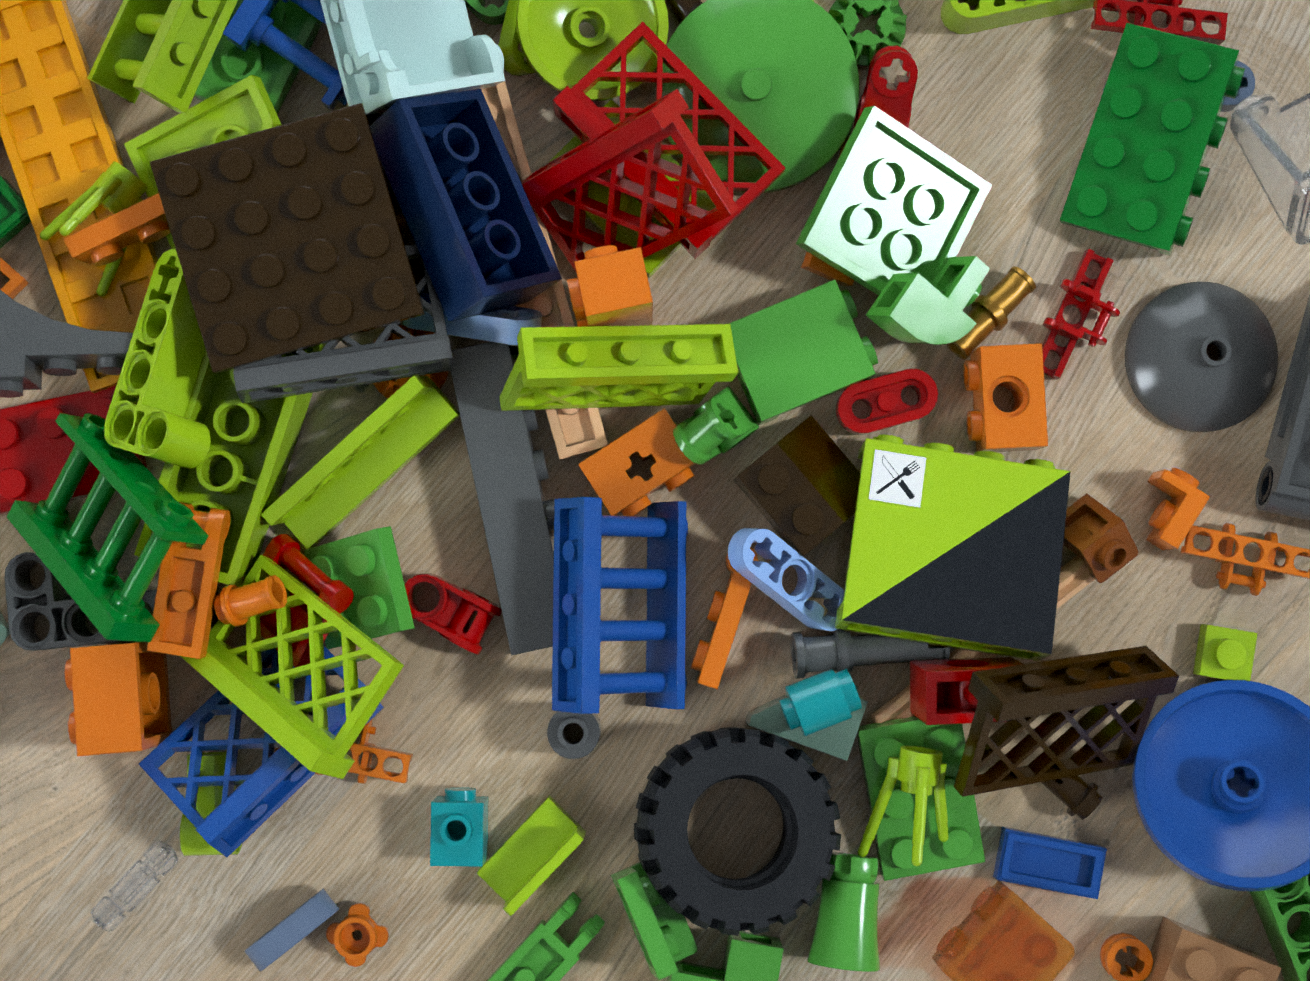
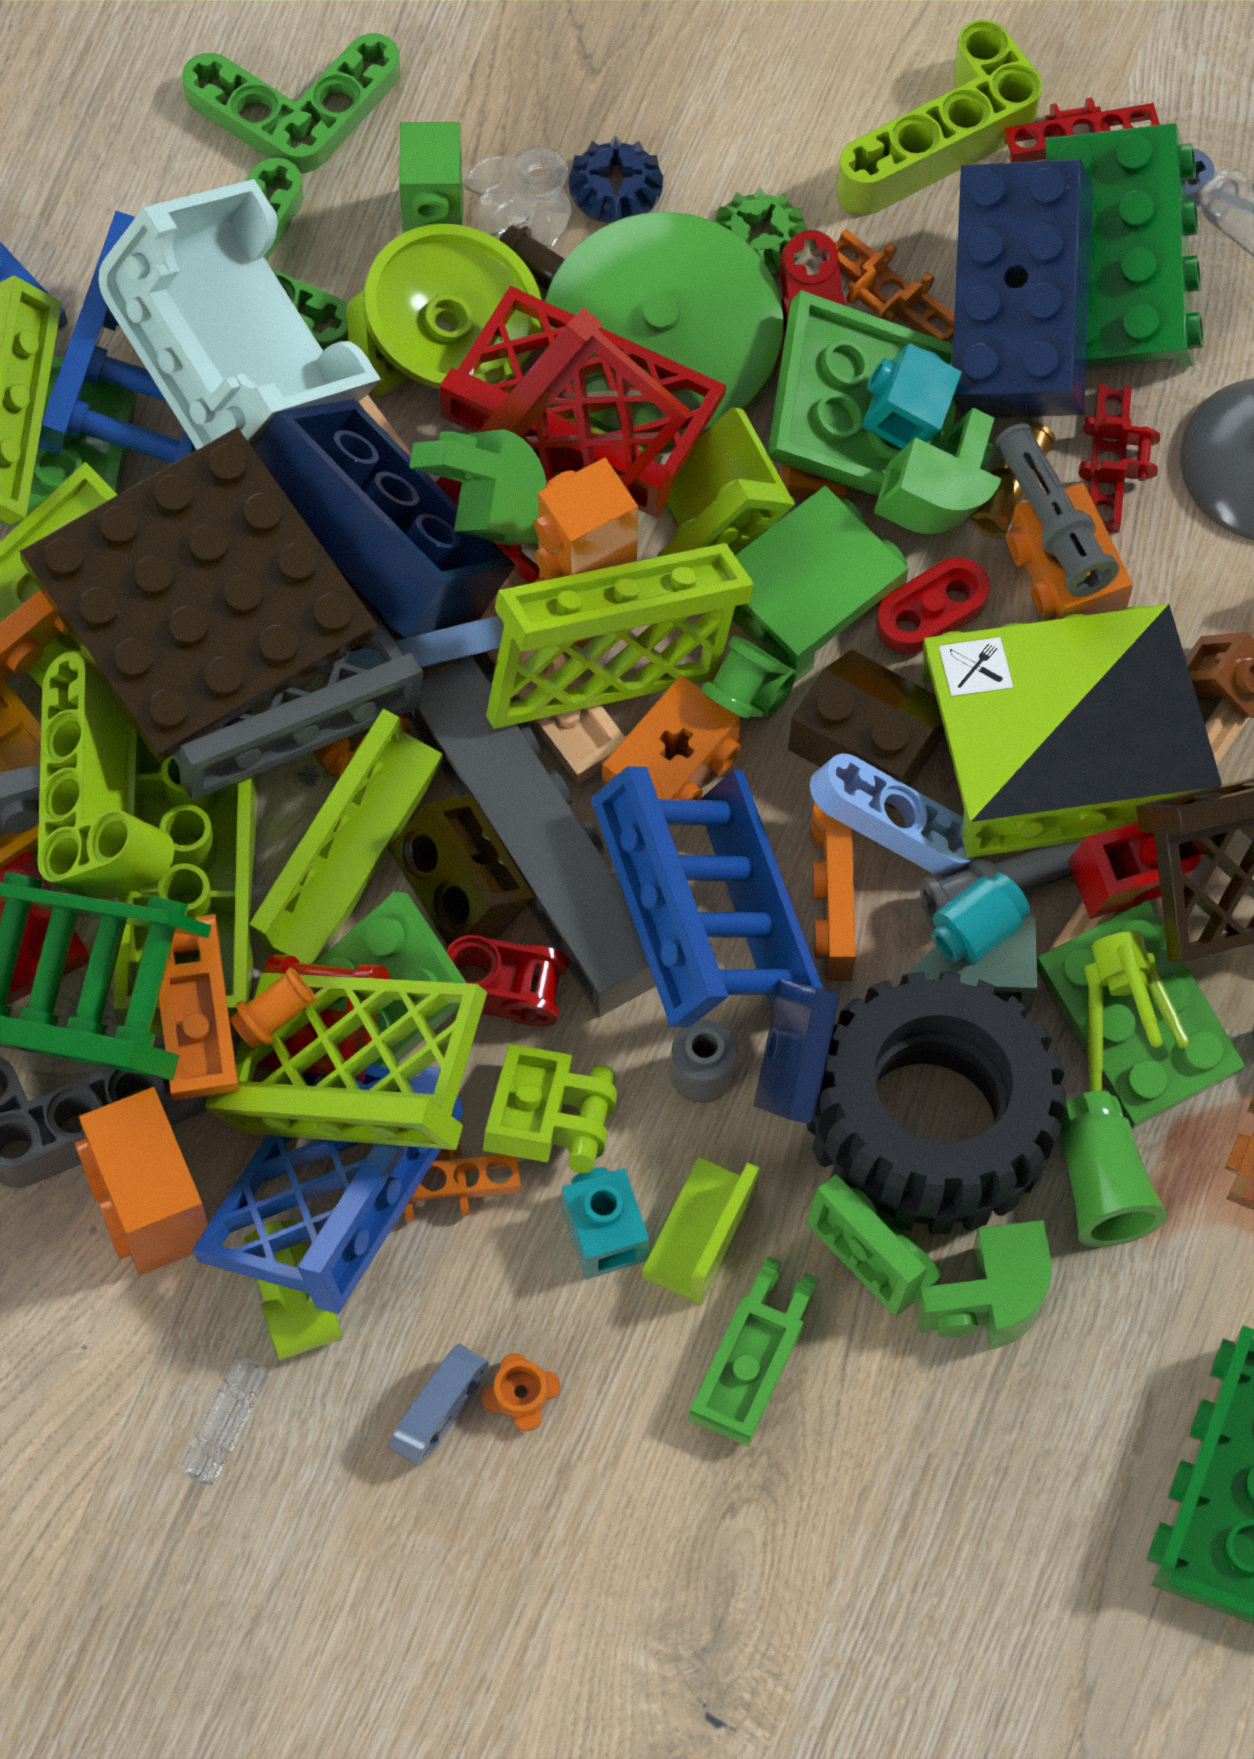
camera: 15 degrees left, 20 degrees down
(432, 720) = (529, 1104): none -> lime plate
(441, 515) = (461, 870): none -> dark brown brick
(562, 214) = (497, 479): none -> bright green brick
(642, 759) = (796, 1051): none -> dark blue plate
(752, 262) = (726, 489): none -> lime bracket
(930, 228) = (910, 396): none -> teal brick
(954, 126) = (868, 291): none -> orange piece
(1002, 303) = (1066, 530): none -> dark grey pin
(1068, 103) = (1022, 288): none -> dark blue brick

